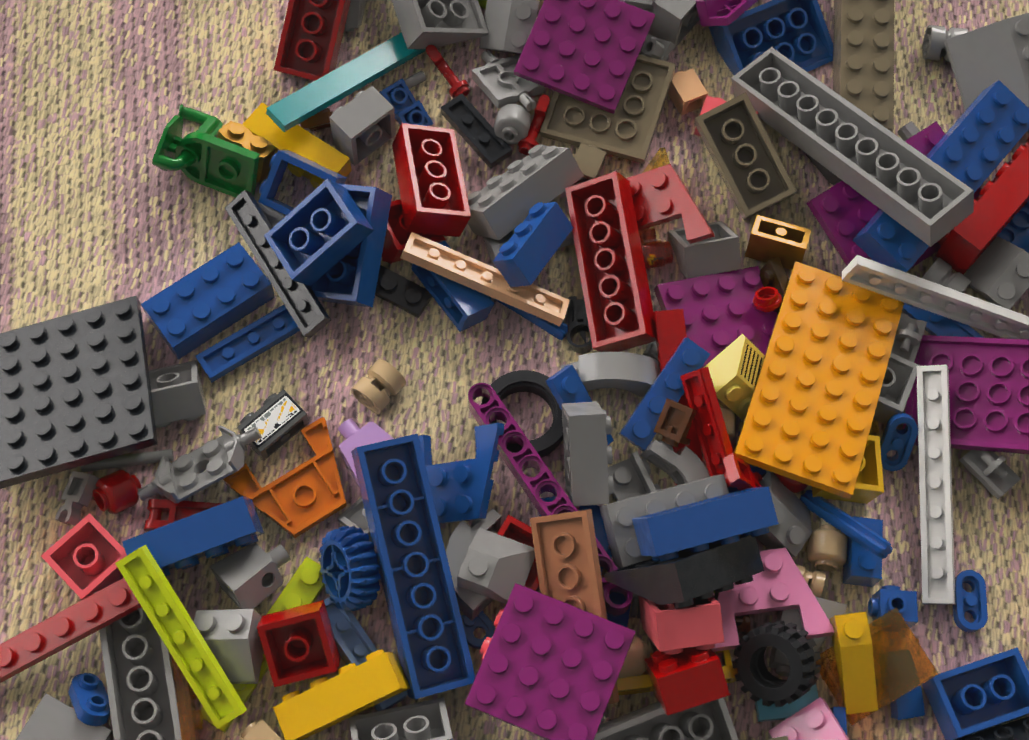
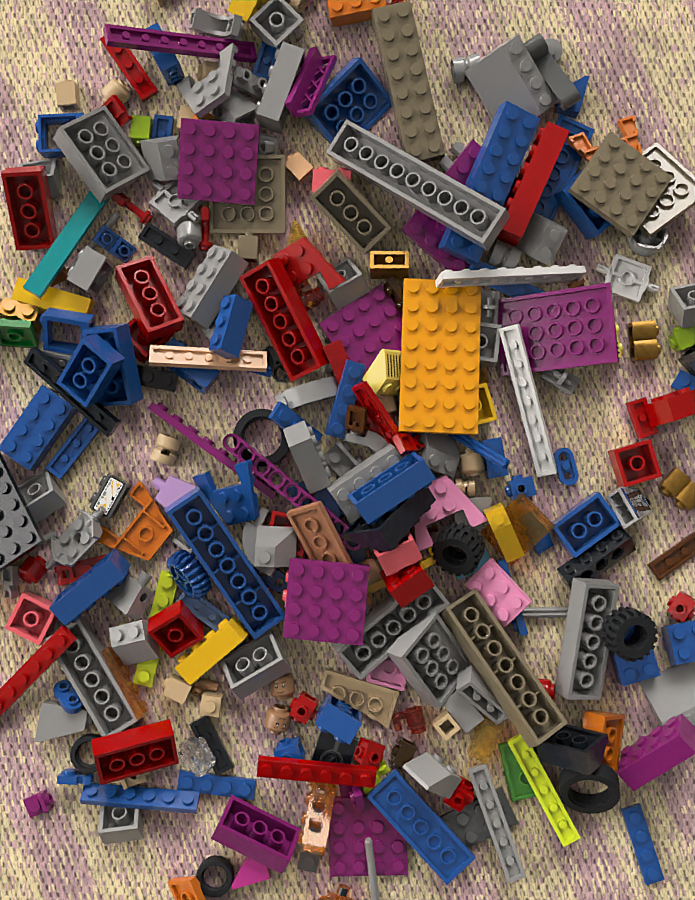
camera: 10 degrees left, 20 degrees up
(181, 636) = (105, 649): neon yellow plate -> none
(441, 401) = (207, 444): none -> magenta plate
(767, 299) = (392, 310): red plate -> none
(898, 440) = (499, 378): blue plate -> none

